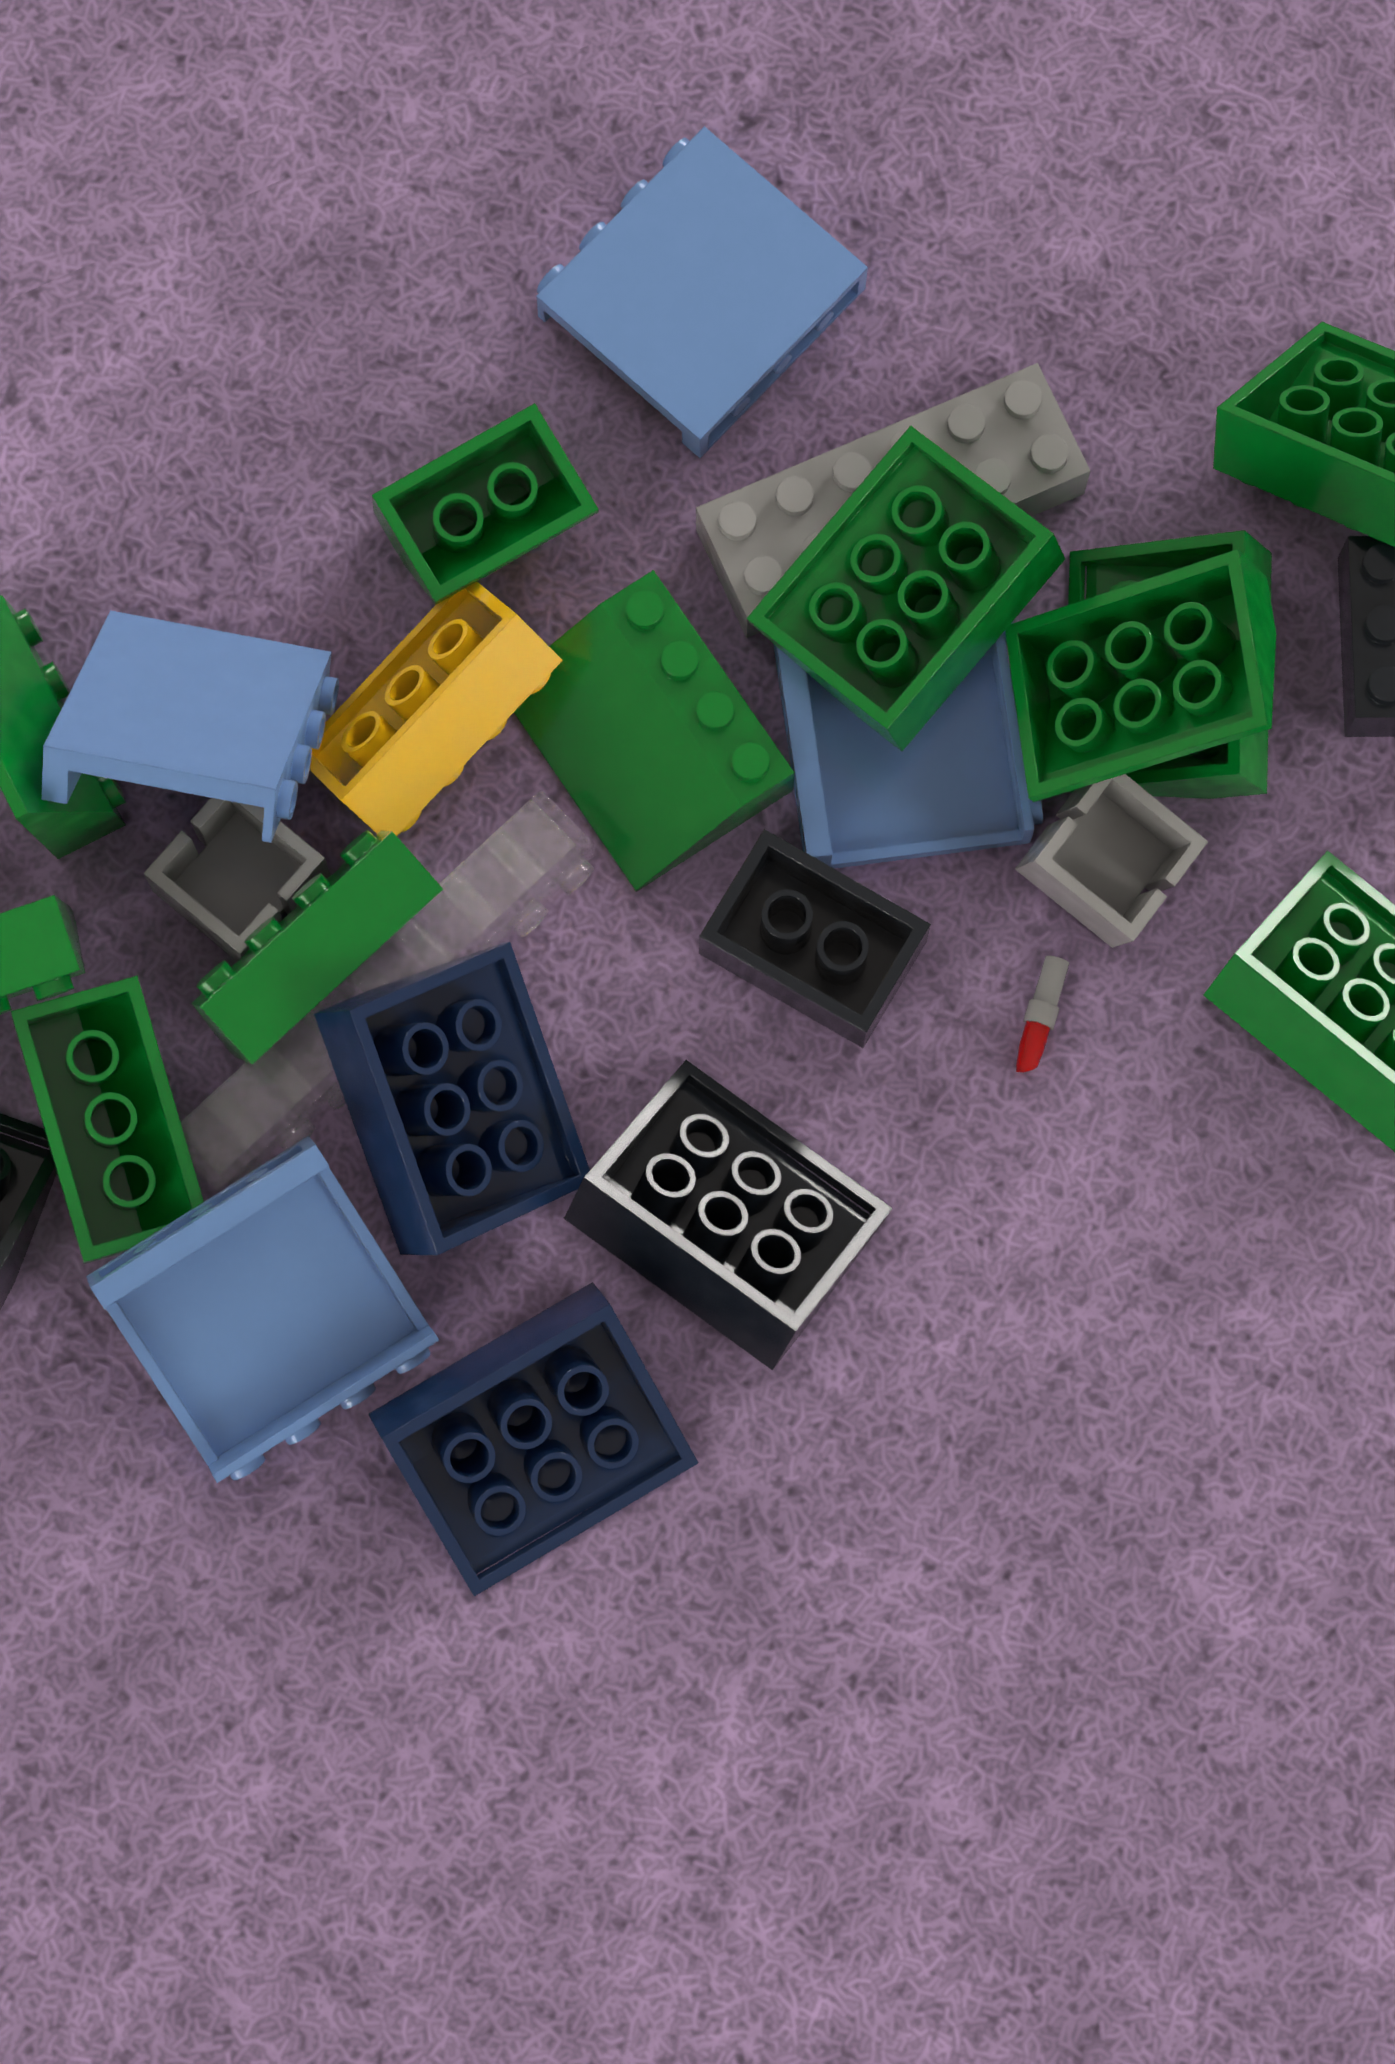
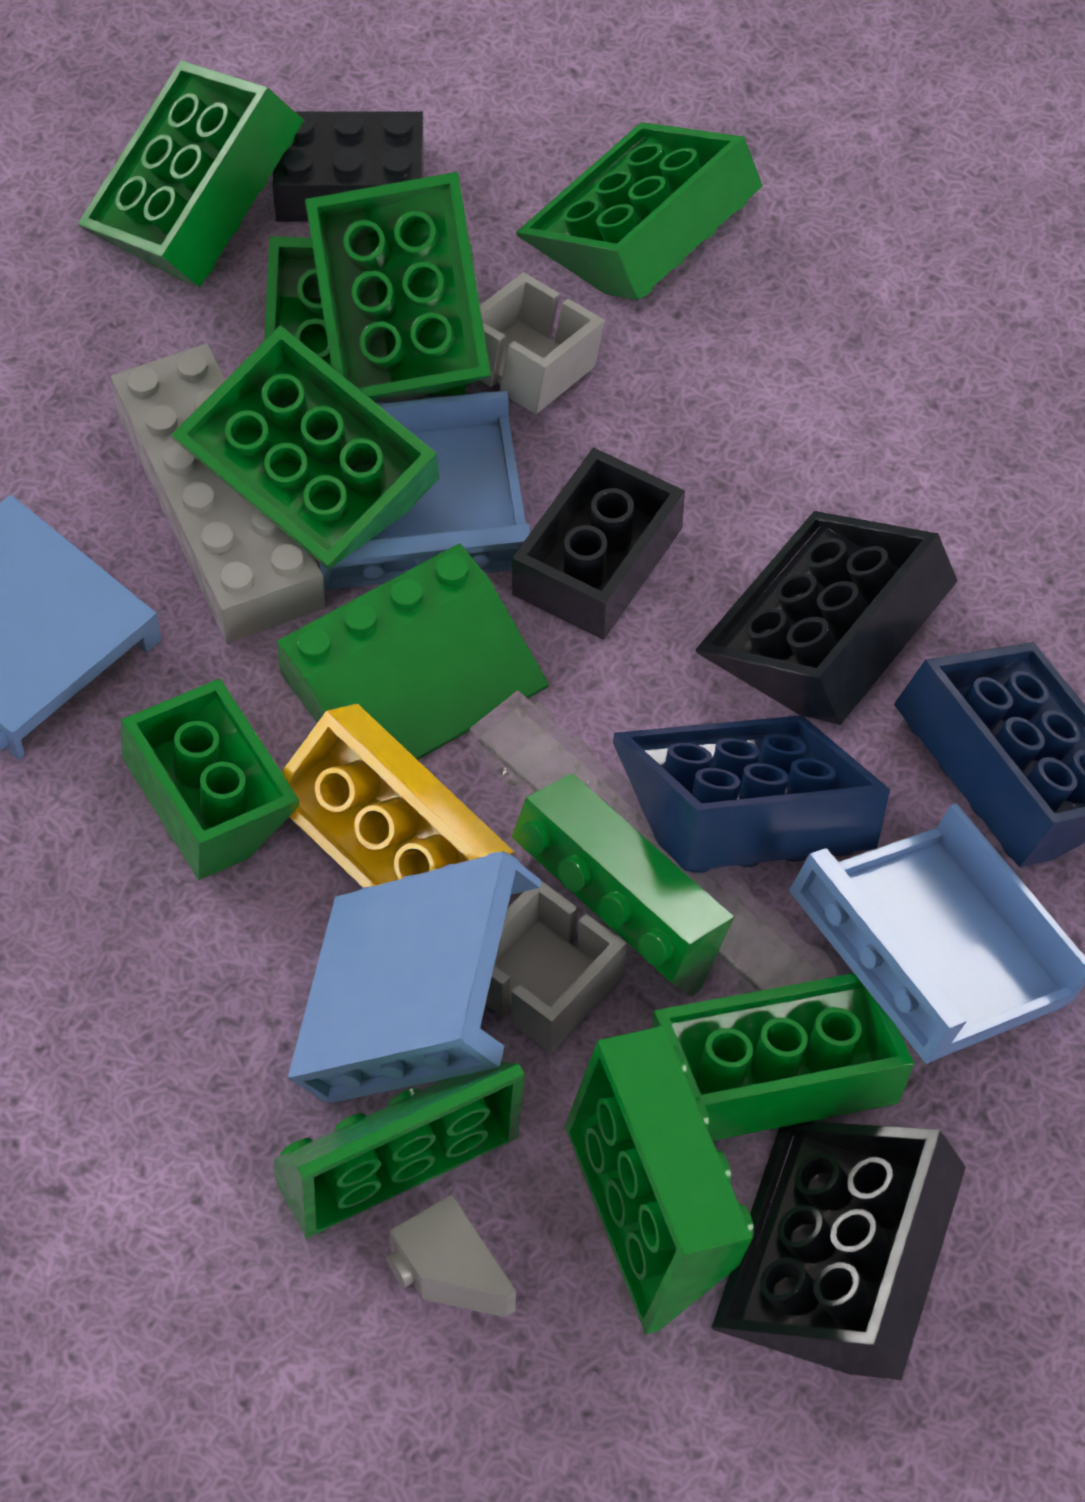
camera: 90 degrees left, 20 degrees down
(1041, 1013) = (650, 411): light grey piece -> none

